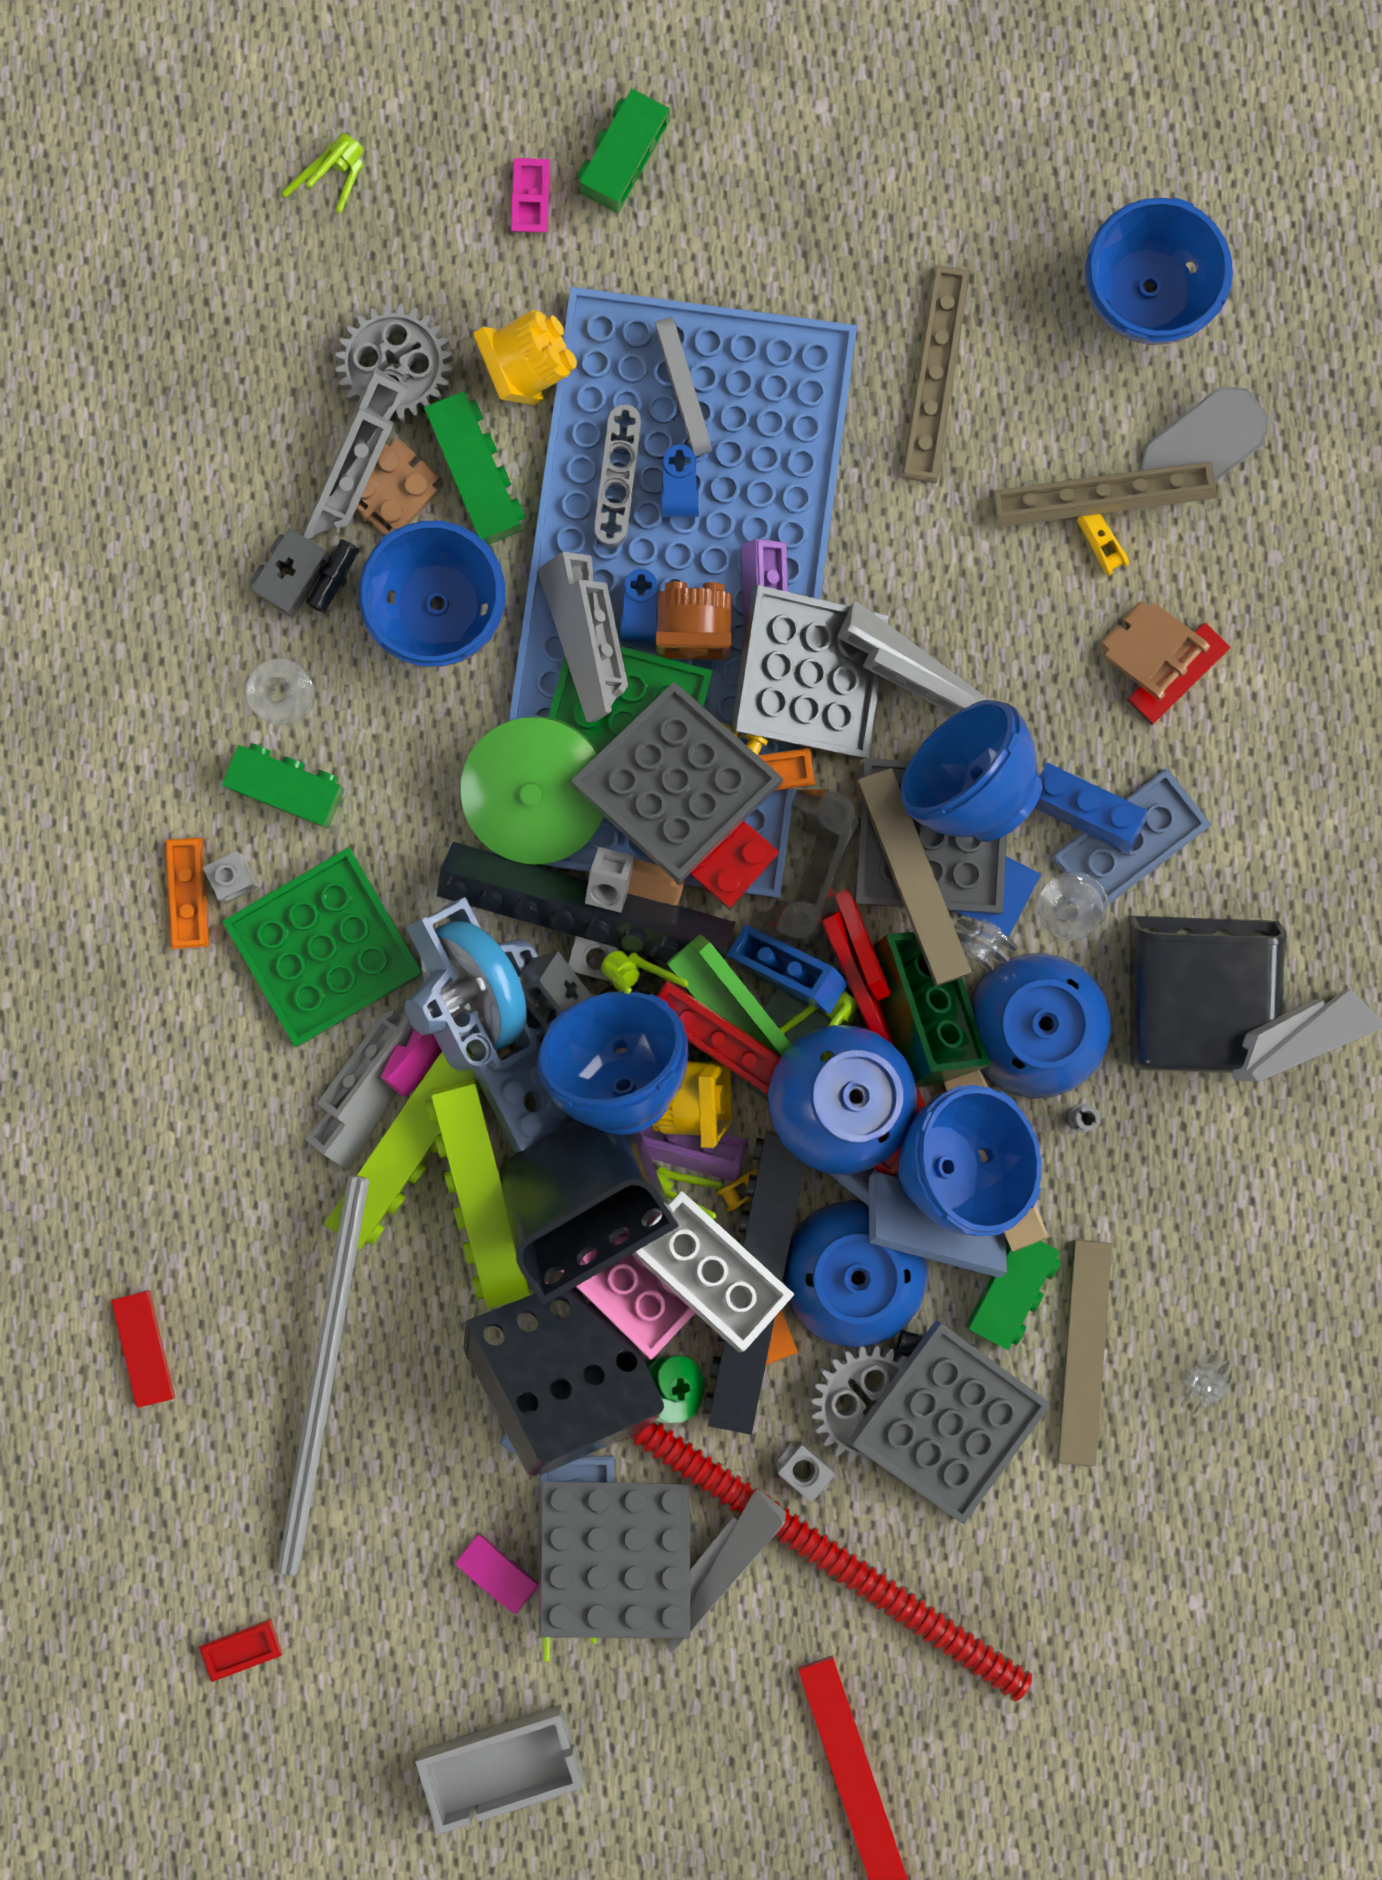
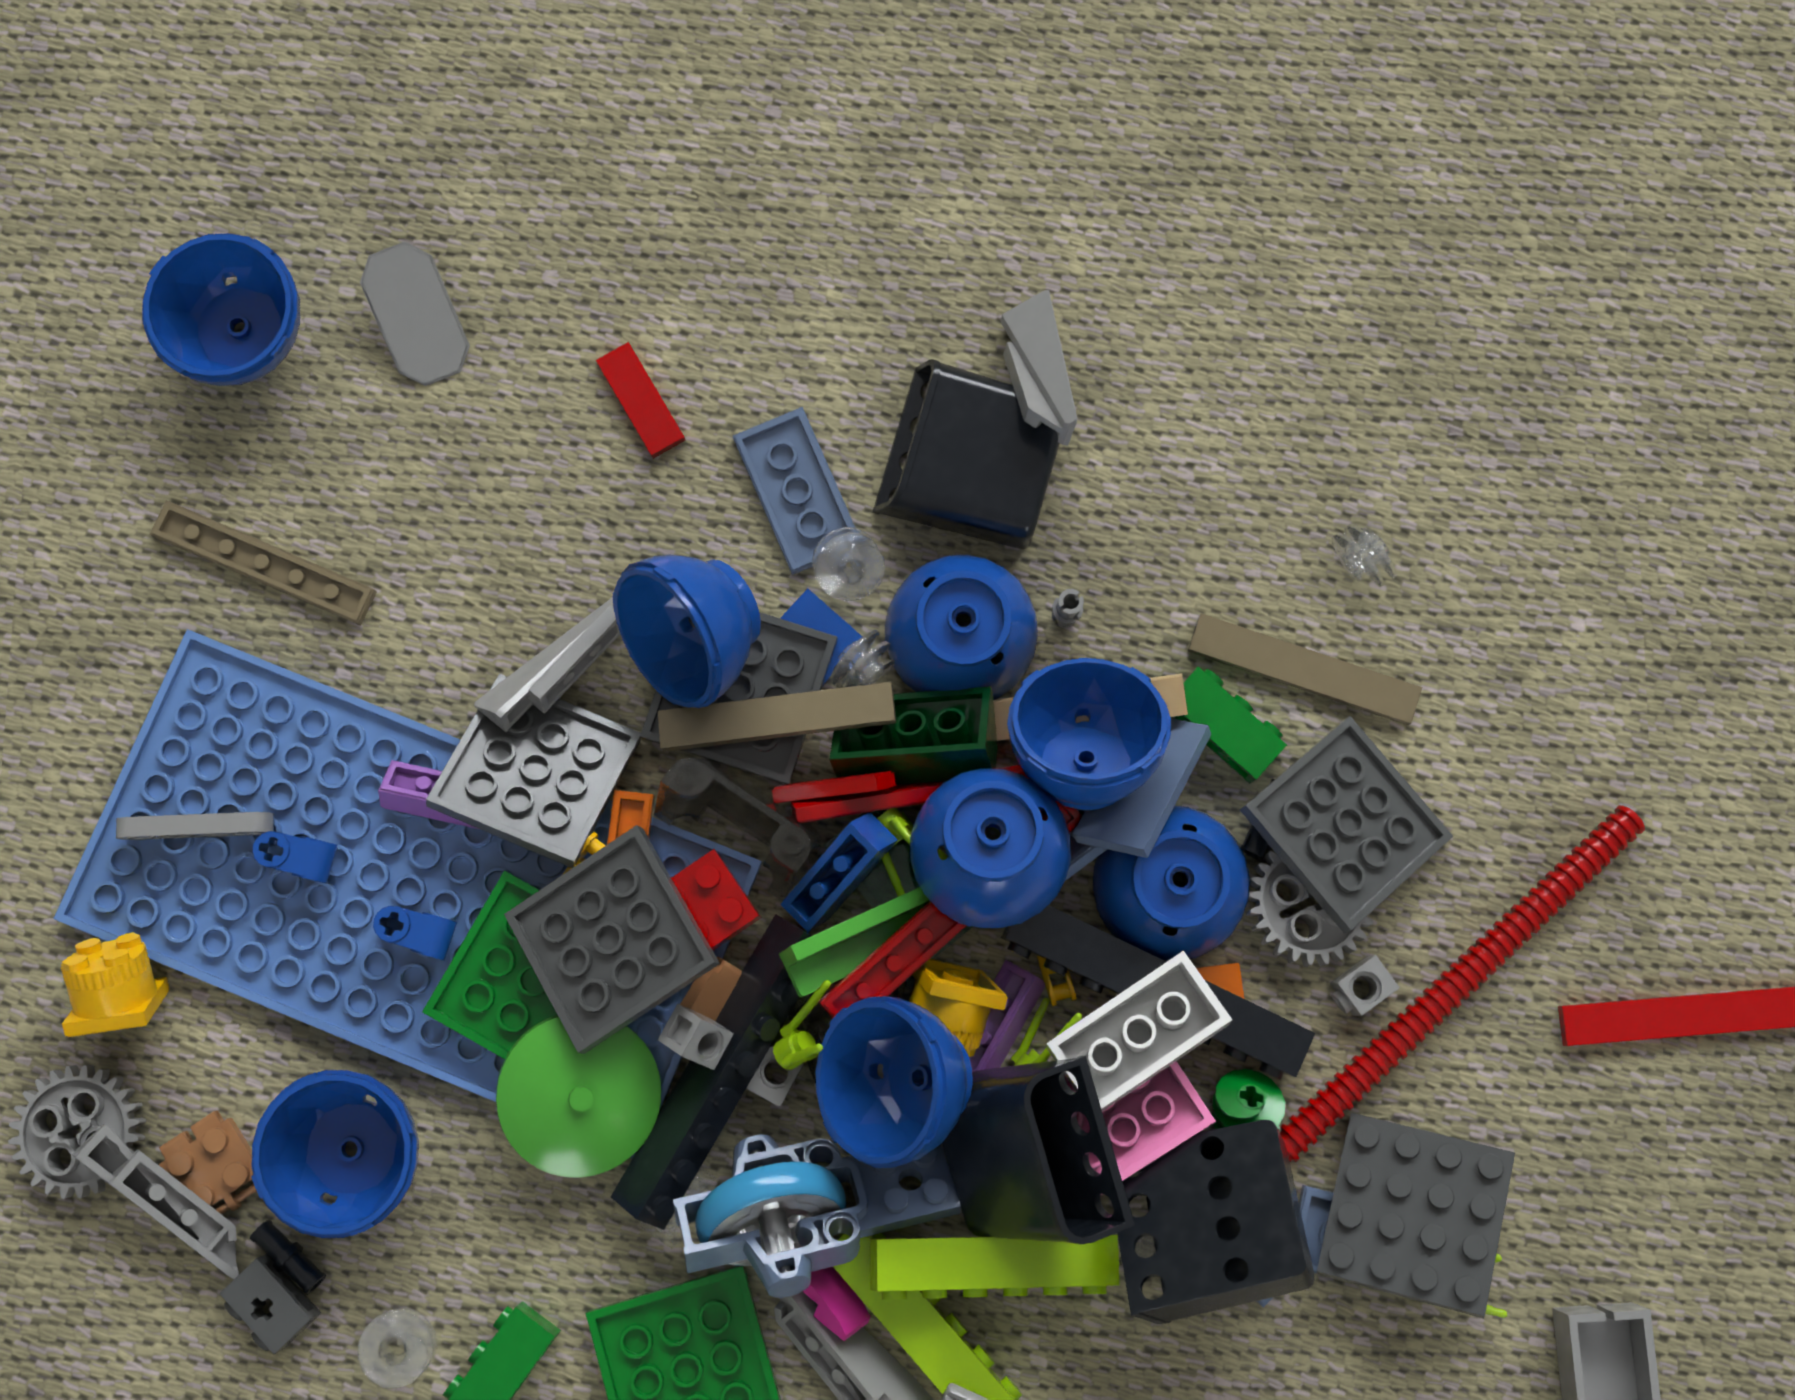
camera: 80 degrees left, 5 degrees down
(473, 467) = (215, 1072): green brick -> none
(497, 1574) = (1401, 1344): dark pink slope -> none
(551, 987) = (794, 1129): dark grey brick -> none
(586, 631) = (423, 995): light grey wedge -> none
(617, 476) = (270, 917): light grey beam -> none
(694, 622) = (446, 877): dark orange piece -> none
(730, 1555) = (1436, 1087): light grey wedge -> none
(1090, 808) = (754, 519): blue brick -> none
(1100, 535) = (478, 441): yellow bar -> none
(1104, 494) = (436, 425): dark tan tile -> none
(1152, 648) = (607, 417): medium nougat plate -> none

